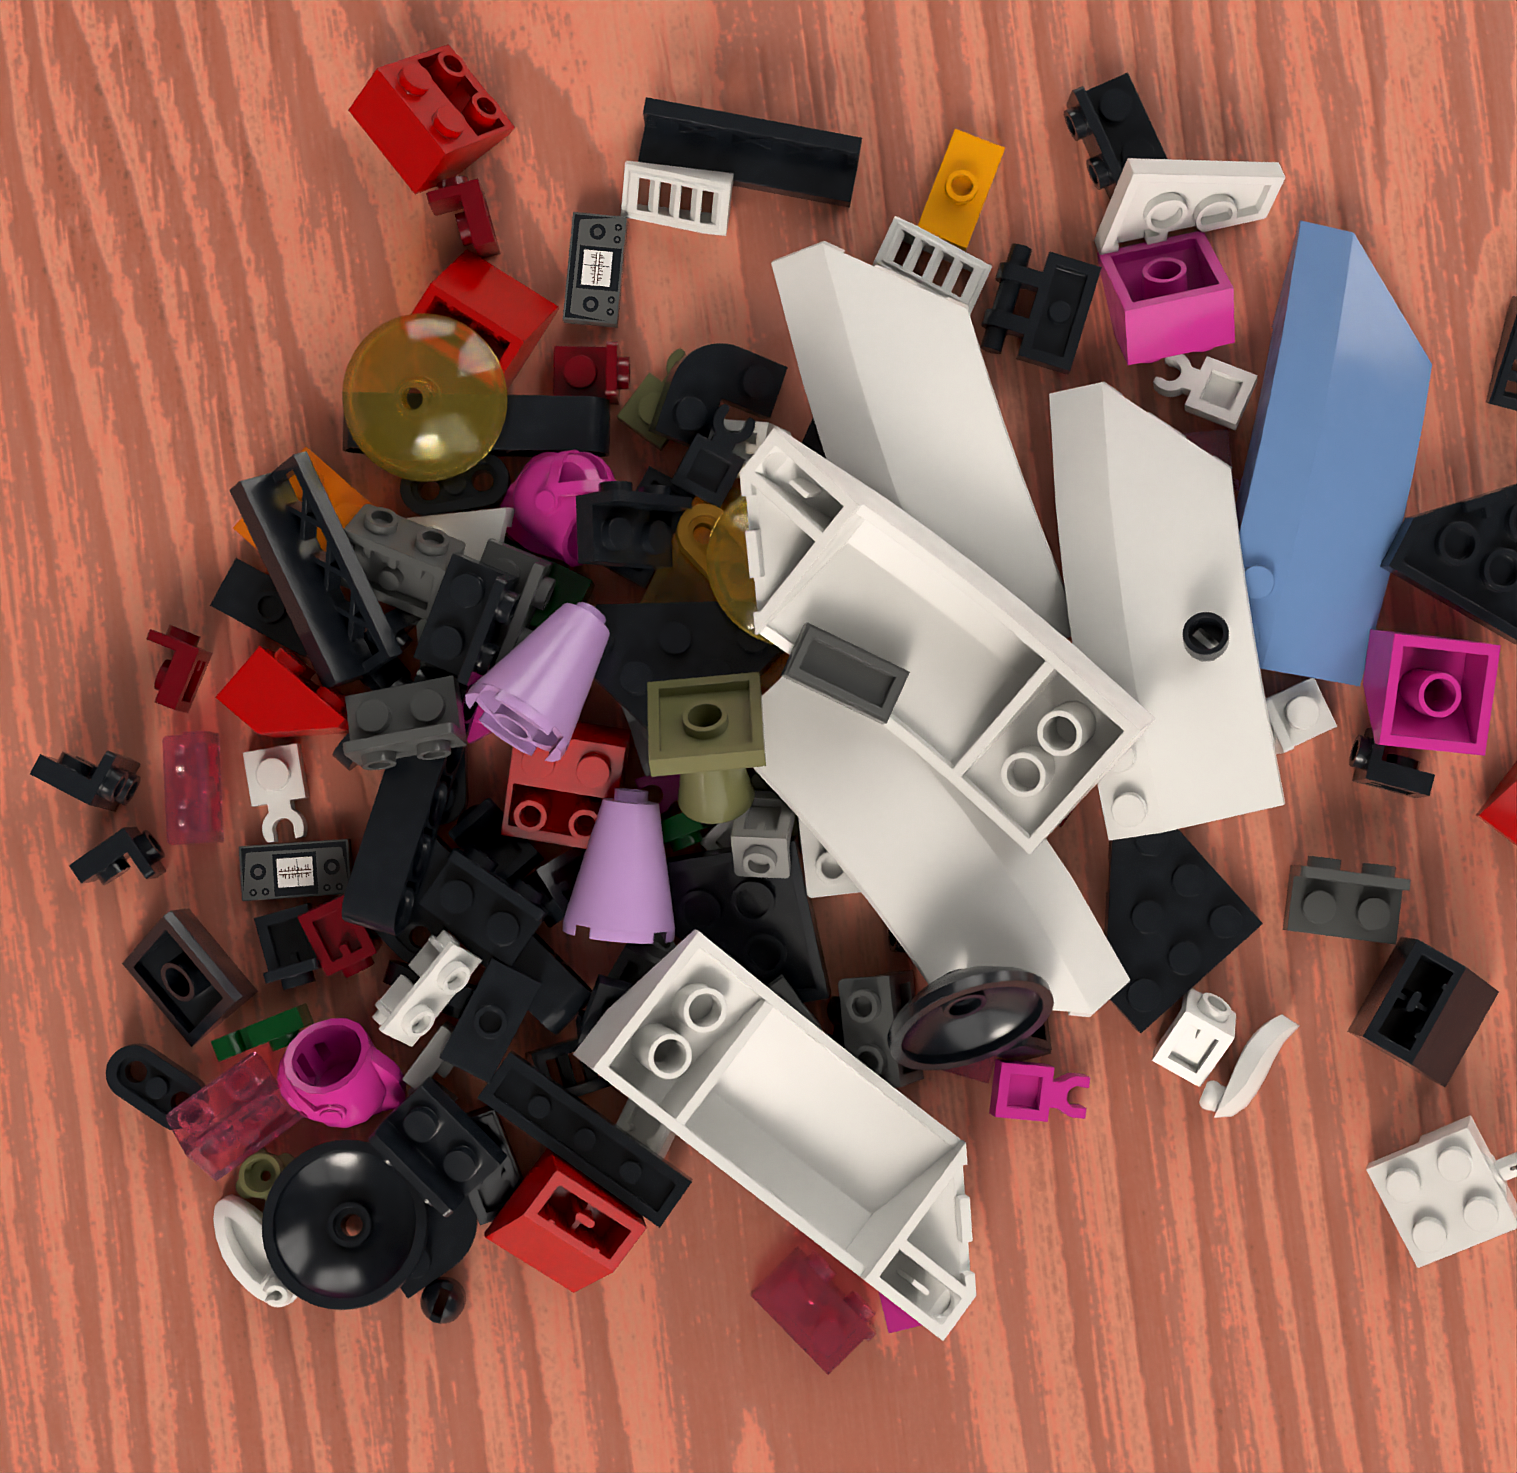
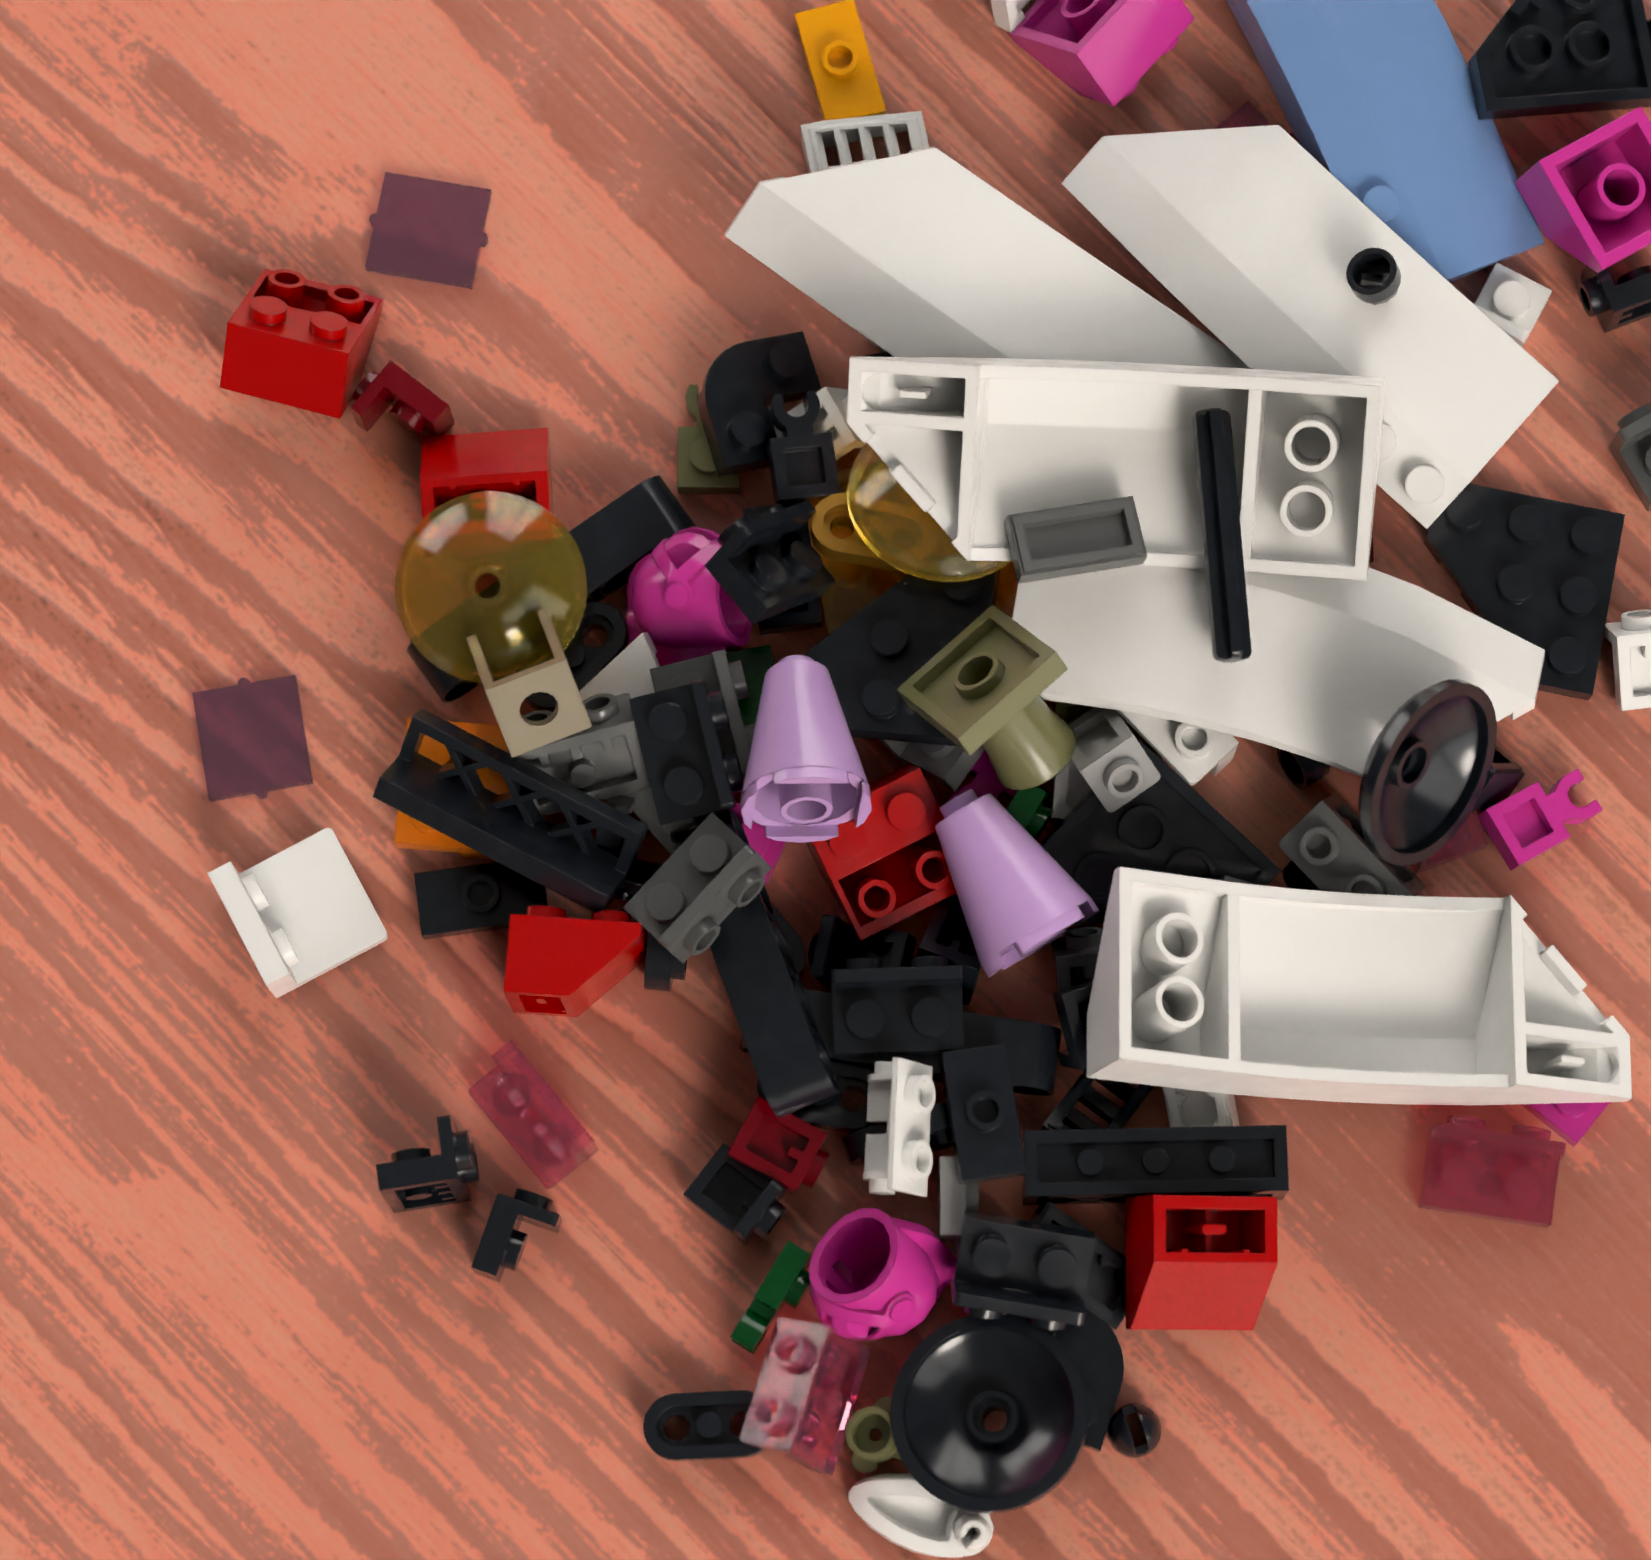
camera: 35 degrees left, 10 degrees down
(134, 526) = (300, 911): none -> white bracket
(181, 676) = (443, 1022): dark red bracket -> none
(188, 975) = (659, 1299): black slope -> none
(198, 378) = (252, 738): none -> piece
(276, 780) = (607, 1056): white plate -> none
(295, 869) = (687, 1124): tile -> none
(409, 508) = (548, 677): none -> dark tan piece
(583, 99) = (428, 230): none -> piece
(591, 371) = (622, 463): dark red bracket -> none
(595, 269) = (556, 372): tile -> none
(699, 180) = (595, 271): white slope -> none
(758, 151) = (621, 165): black fence -> none
(951, 746) = (1221, 535): none -> black axle
(1057, 312) = (1012, 107): black plate -> none
(1214, 392) = (1210, 76): white plate -> none

